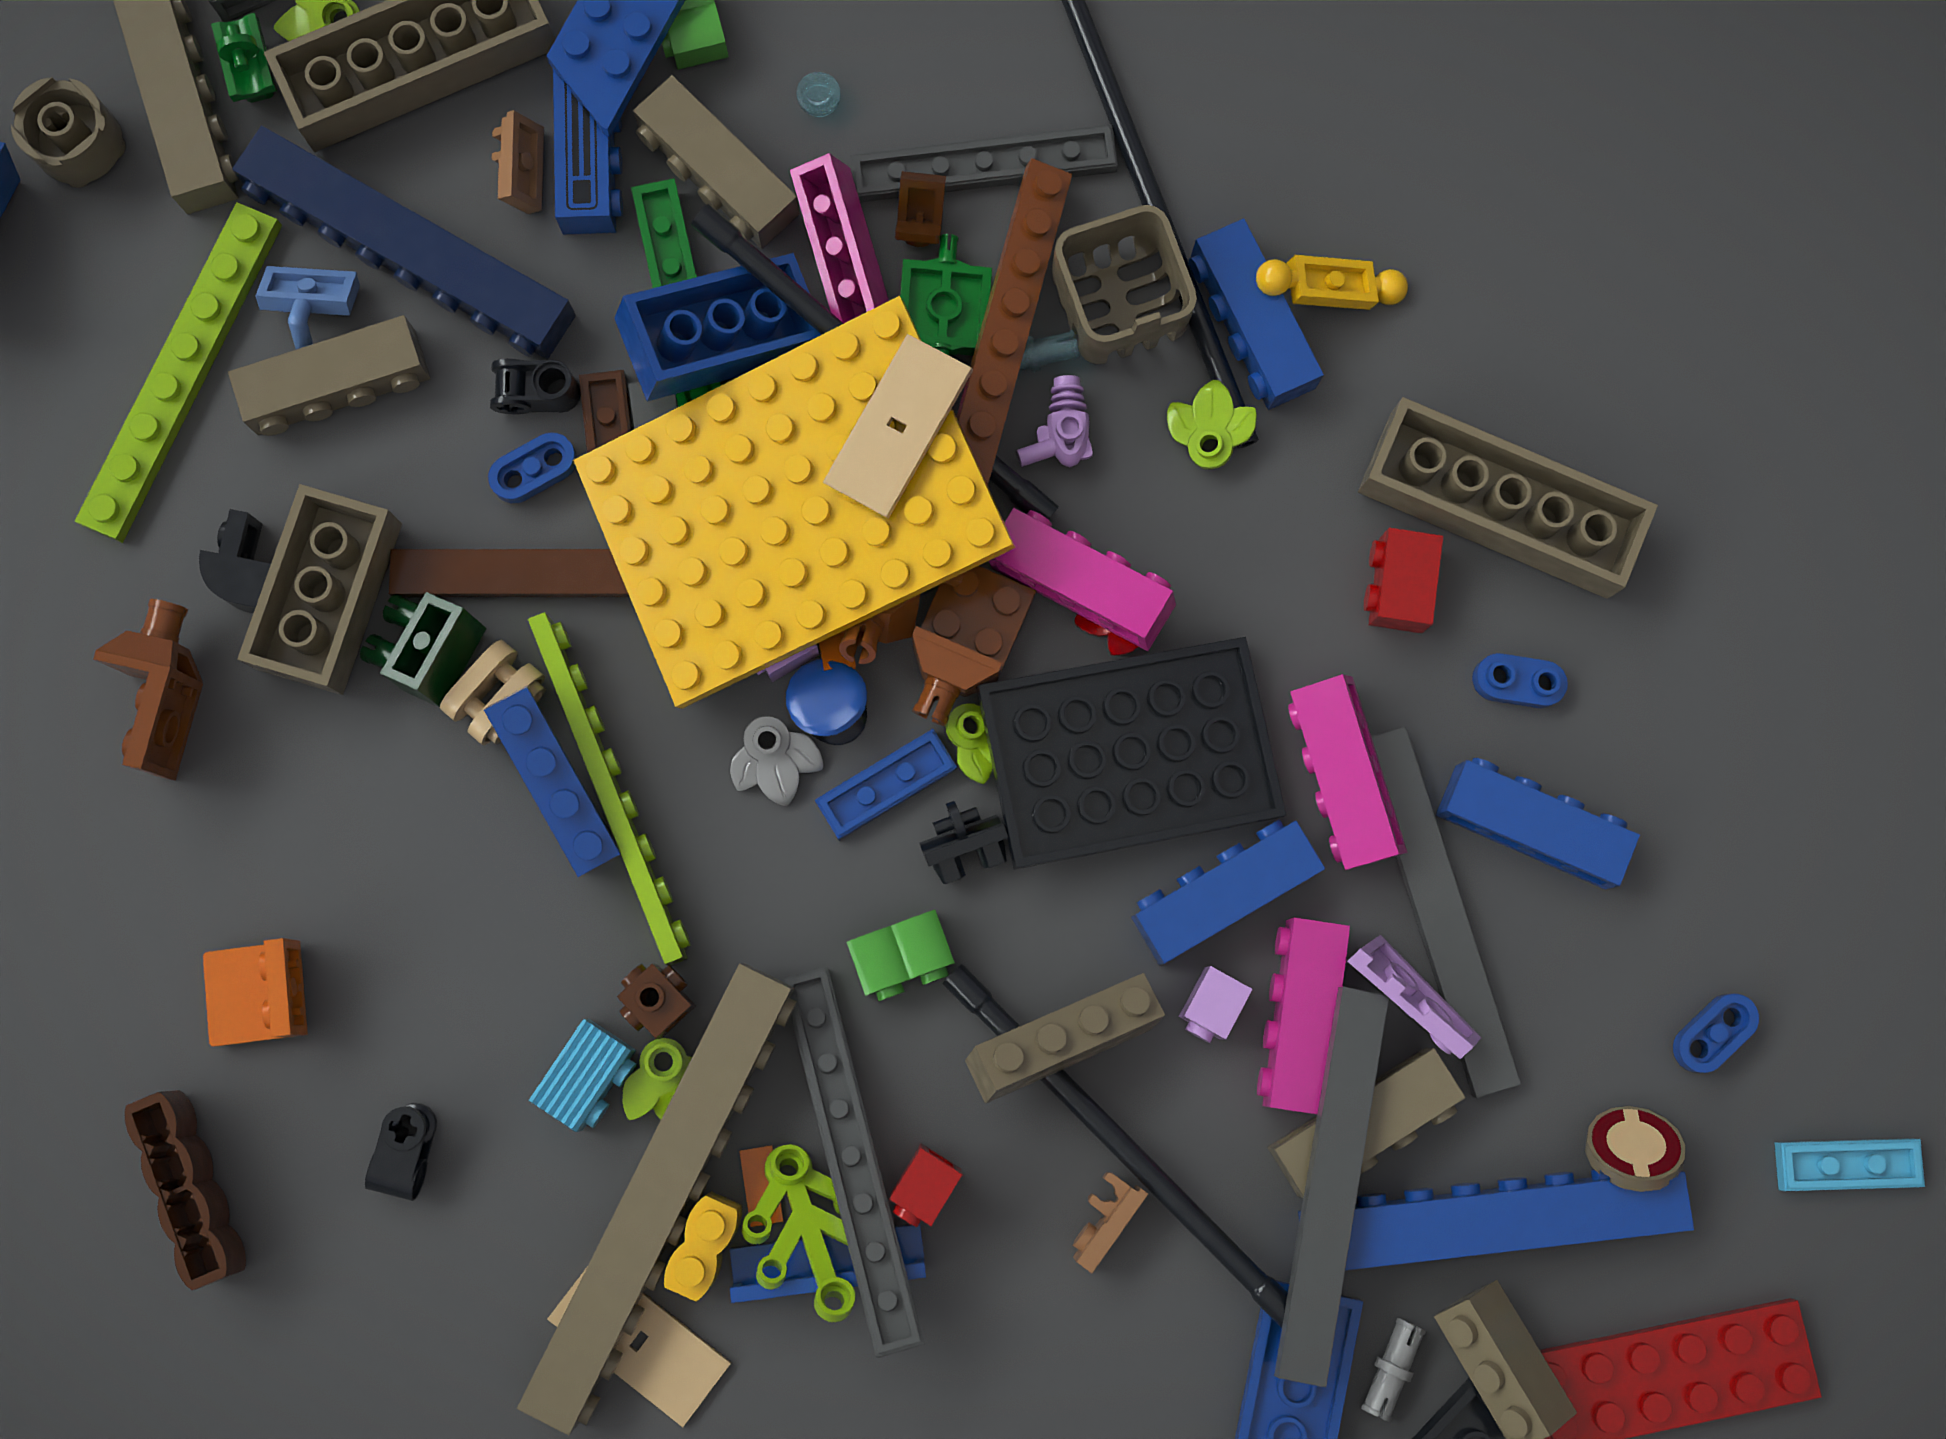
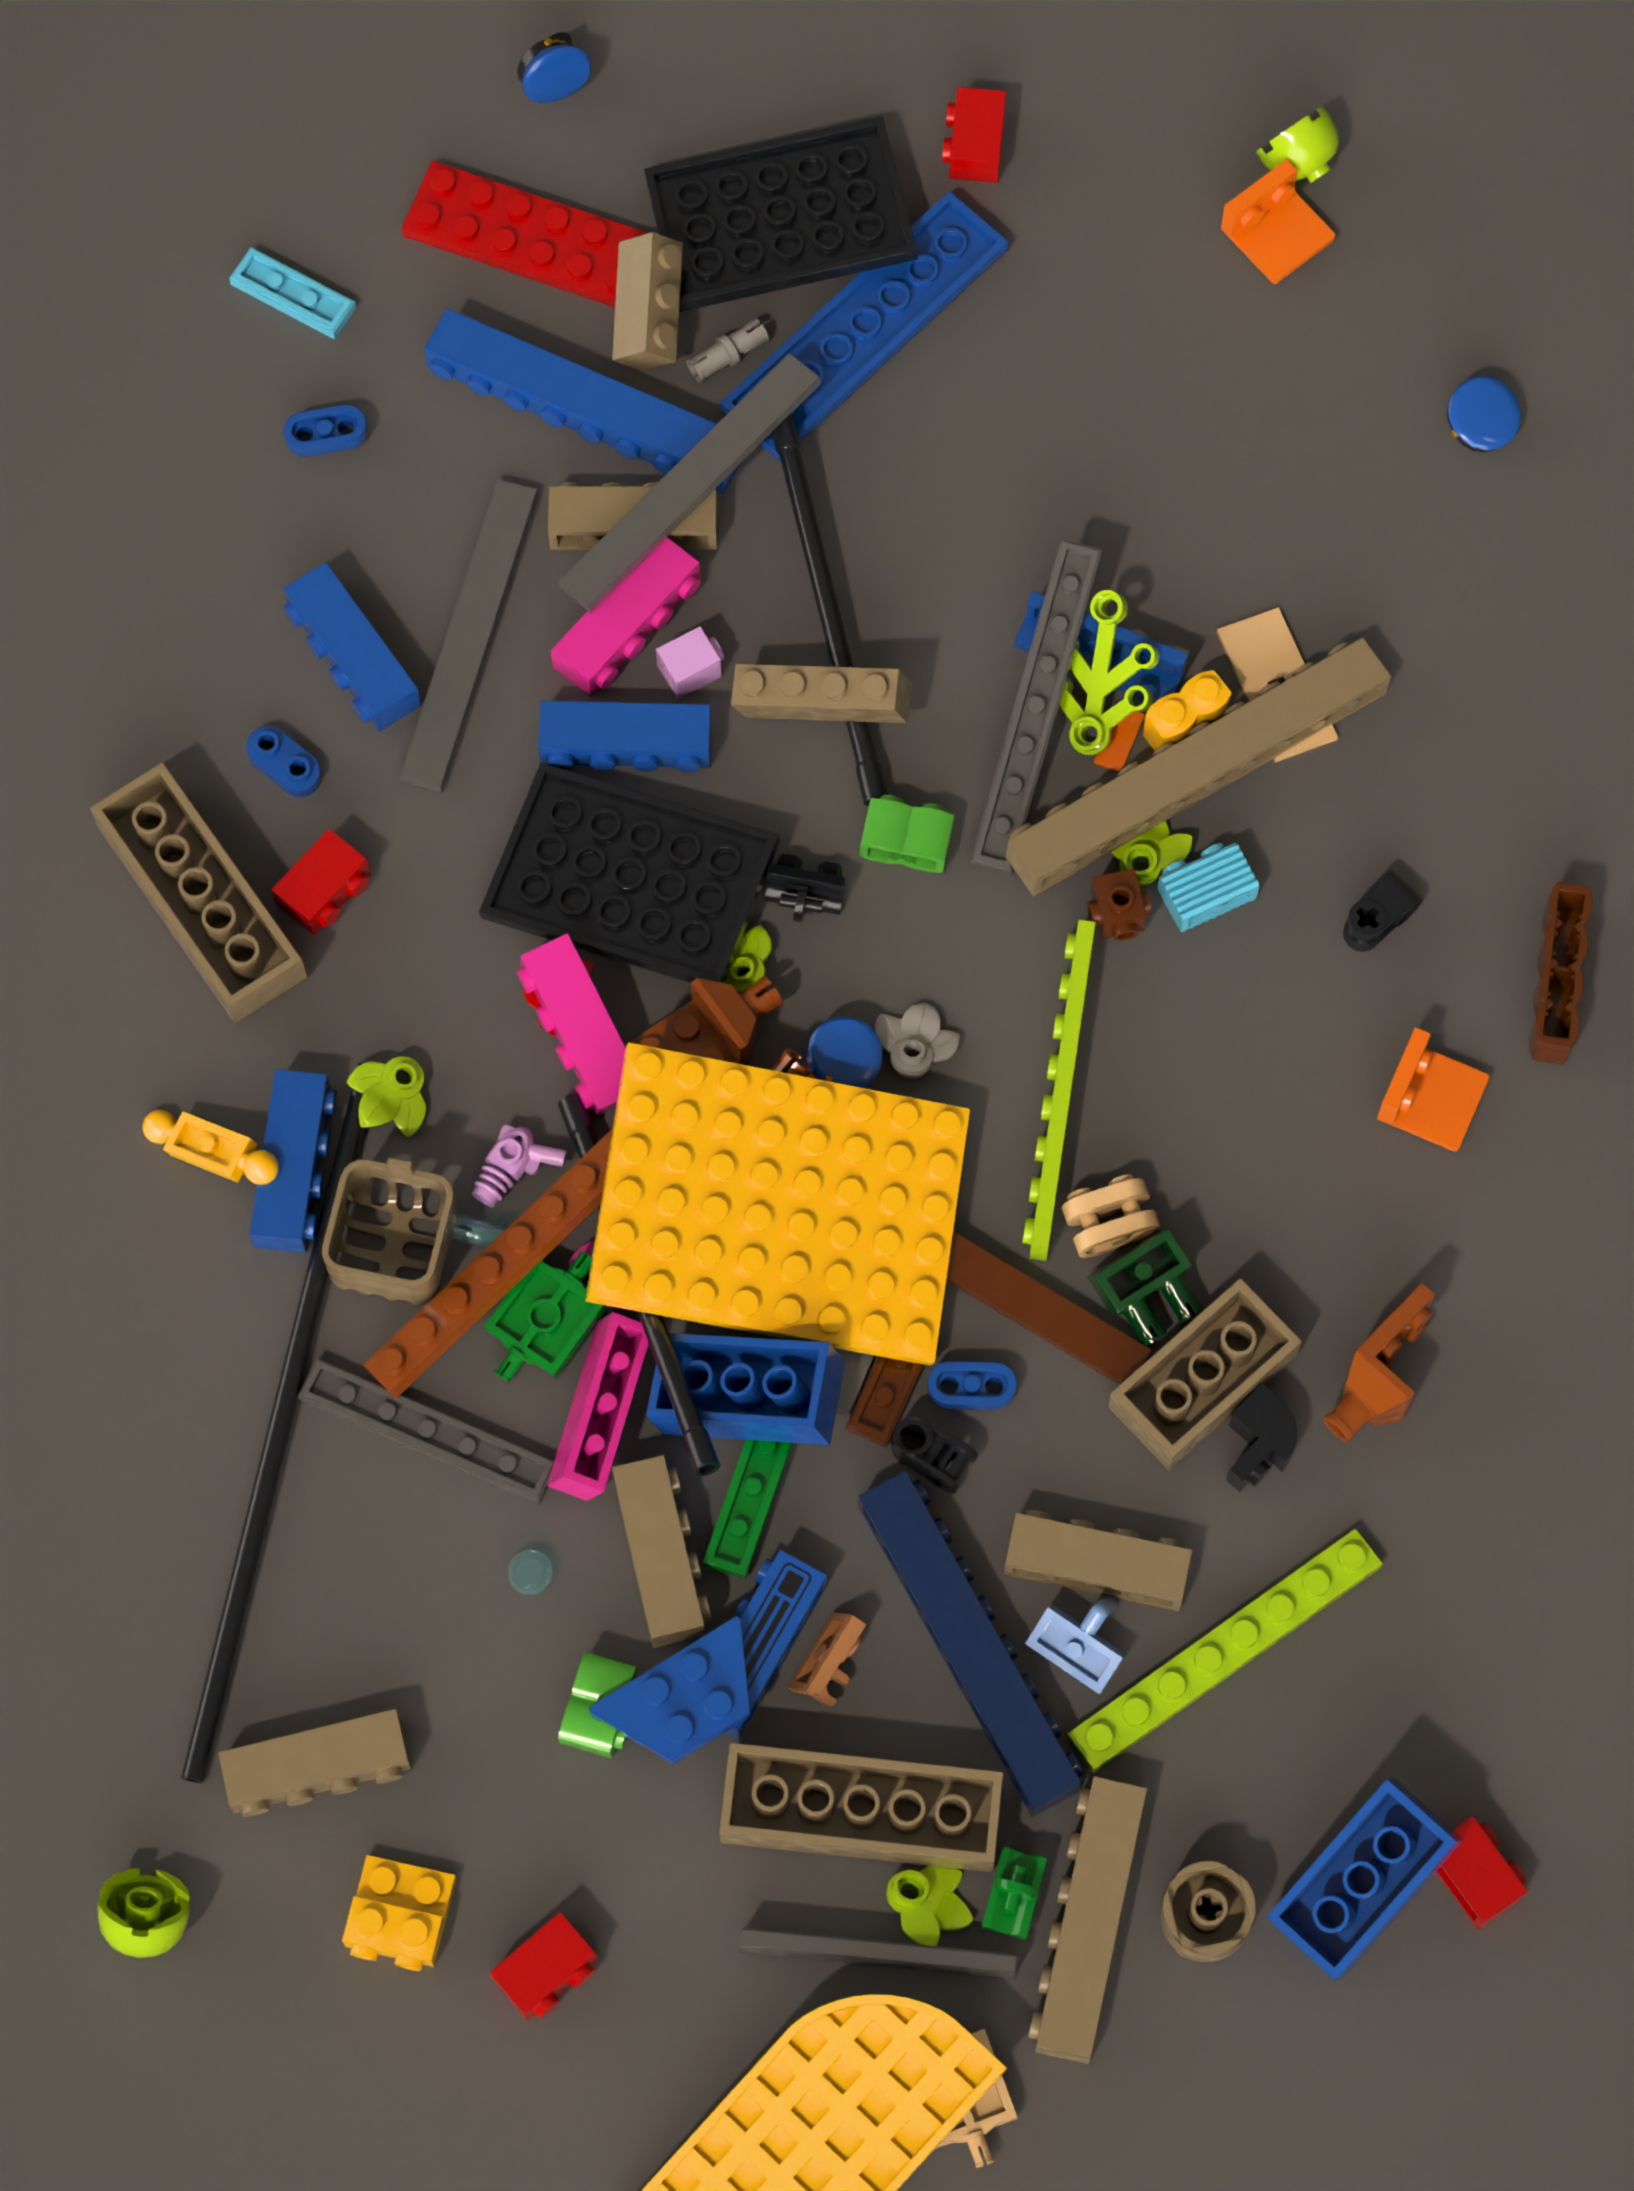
camera: 140 degrees left, 10 degrees down
(552, 781) = (1101, 1107): blue brick -> none
(886, 784) = (838, 971): blue tile -> none
(914, 391) = (626, 1204): tan piece -> none
(920, 208) = (512, 1410): reddish brown bracket -> none
(924, 1187) = (993, 654): red piece -> none
(1096, 1240) = (865, 560): medium nougat plate -> none
(1347, 772) = (471, 764): dark pink brick -> none
(1409, 990) = (537, 578): lavender wing -> none
(1635, 1148) = (447, 385): tile -> none

